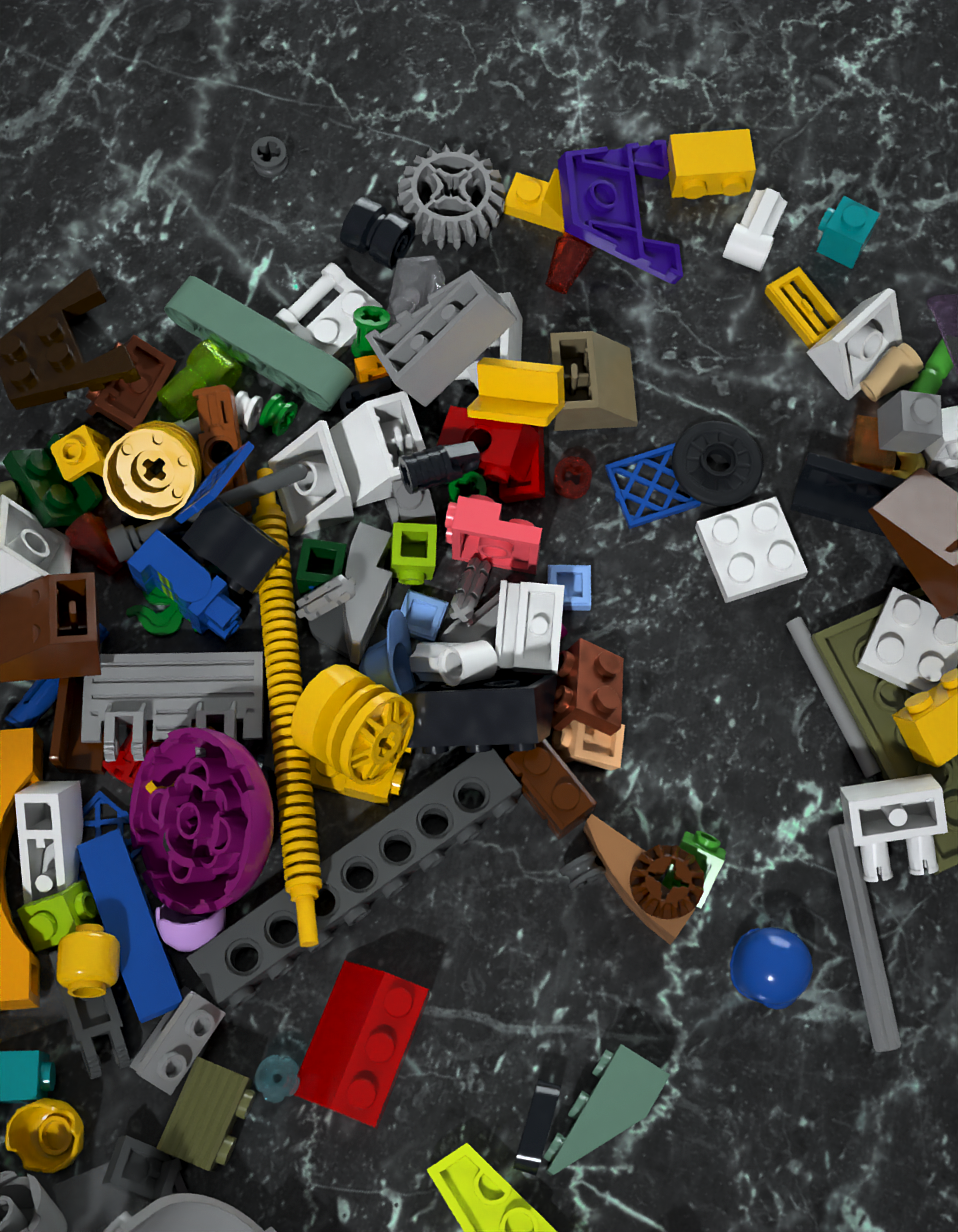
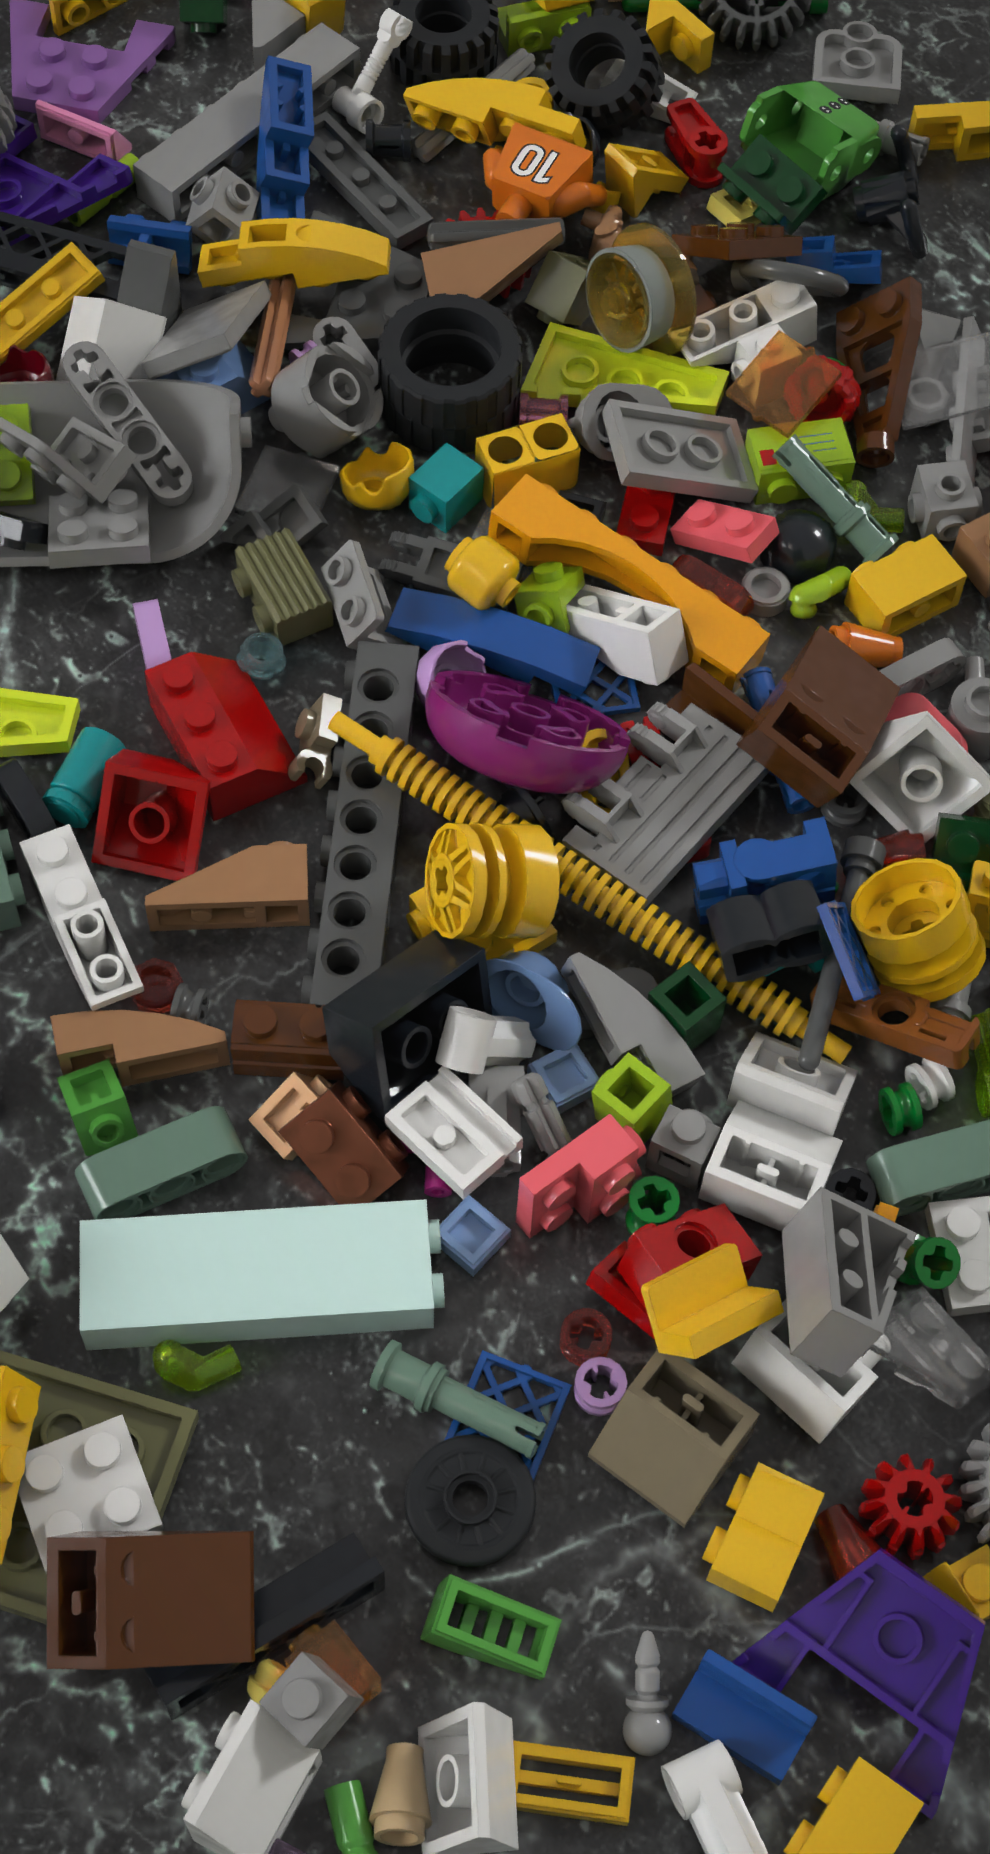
camera: 130 degrees right, 10 degrees down
(313, 971) = (316, 740): none -> dark tan plate
(325, 597) = (645, 973): light grey axle -> none
(332, 1164) = (151, 633): none -> lavender beam
(437, 465) = (694, 1161): black hinge -> none
(467, 911) = (242, 891): none -> medium nougat slope
(469, 1026) = (150, 815): none -> red slope
(482, 1103) = (78, 782): none -> teal piece
(518, 249) = (926, 1491): none -> red gear
(585, 909) = (160, 984): none -> clear red tile
(589, 992) = (81, 918): none -> white slope
(600, 437) = (582, 1389): none -> lavender bush
(602, 302) = (764, 1535): none -> yellow brick
(648, 891) = (92, 1064): reddish brown gear -> none
(679, 526) = (434, 1389): none -> sand green pin
(695, 791) = (161, 1164): none -> sand green beam
(700, 253) = (745, 1715): none -> blue panel
(707, 674) = (258, 1274): none -> light aqua brick
(741, 297) = (647, 1726): none -> light grey bar
(751, 549) = (345, 1448): white plate -> none
(780, 425) = (484, 1649): none -> bright green slope
(791, 665) = (192, 1370): none -> clear neon green arm
(833, 697) = (209, 1412): light grey bar -> none

